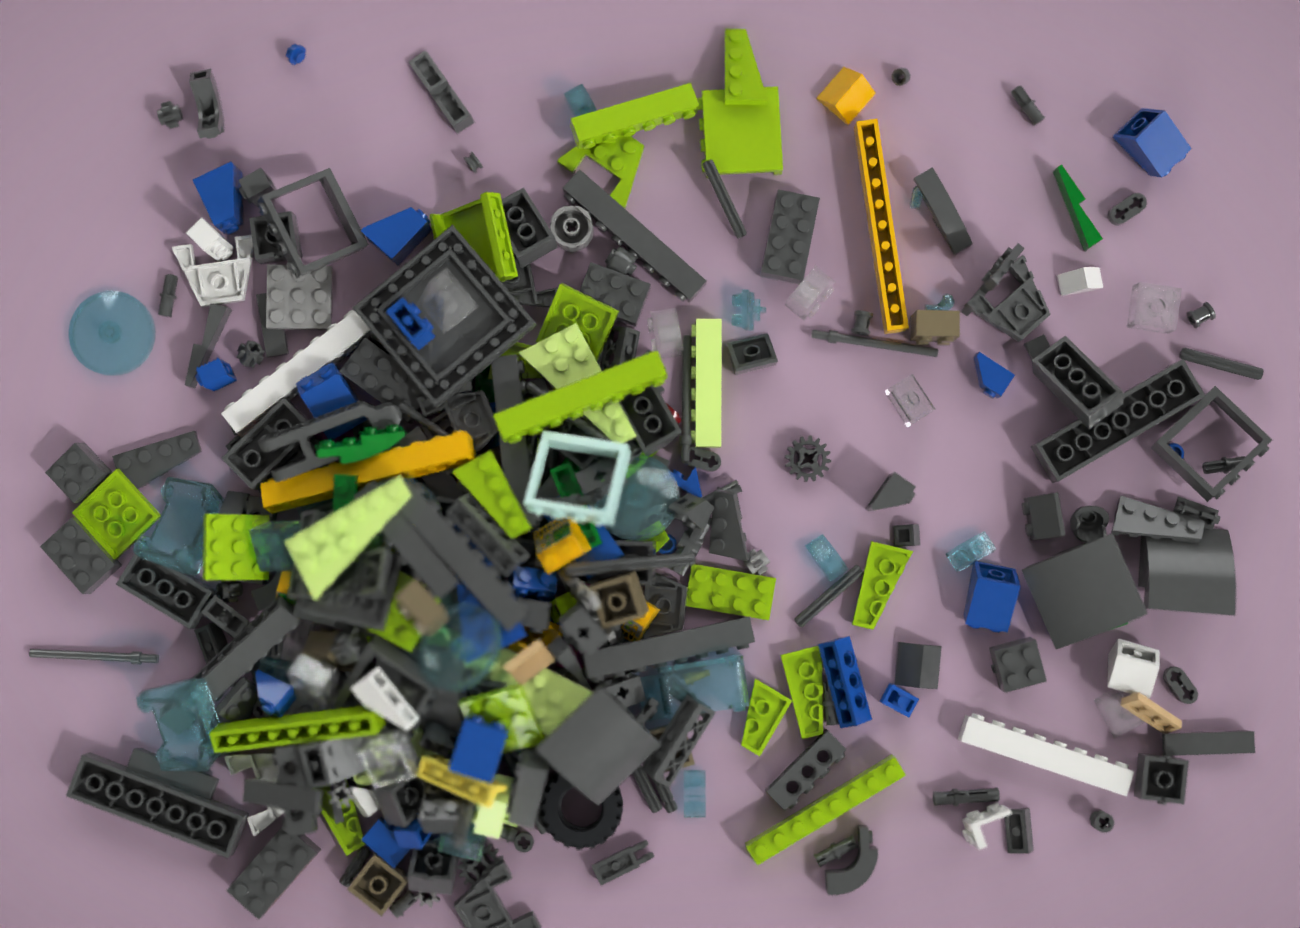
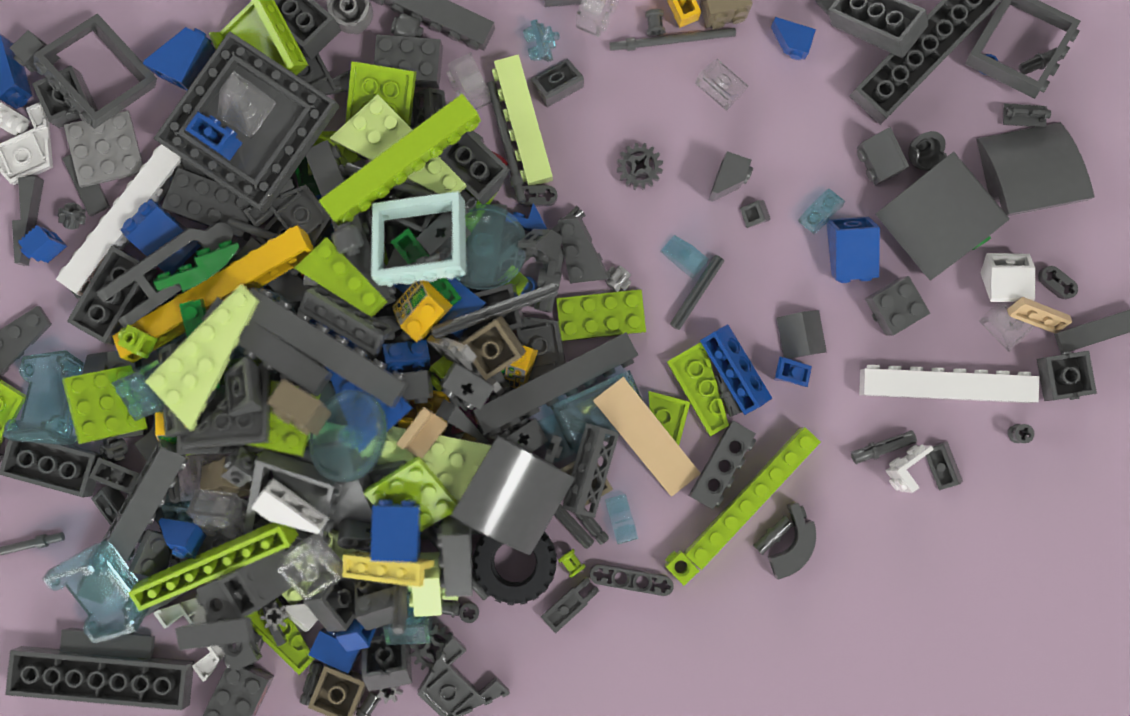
camera: 15 degrees left, 0 degrees up
(284, 497) = (133, 340): none -> lime brick
(510, 458) = (347, 239): none -> dark grey head
(635, 822) = (571, 563): none -> lime bush
(685, 859) = (632, 576): none -> dark grey beam
(741, 723) = (646, 436): none -> tan sticker
(743, 864) = (686, 575): none -> lime brick
(880, 576) = (741, 259): lime wing -> none
(1149, 520) = (979, 133): wing -> none

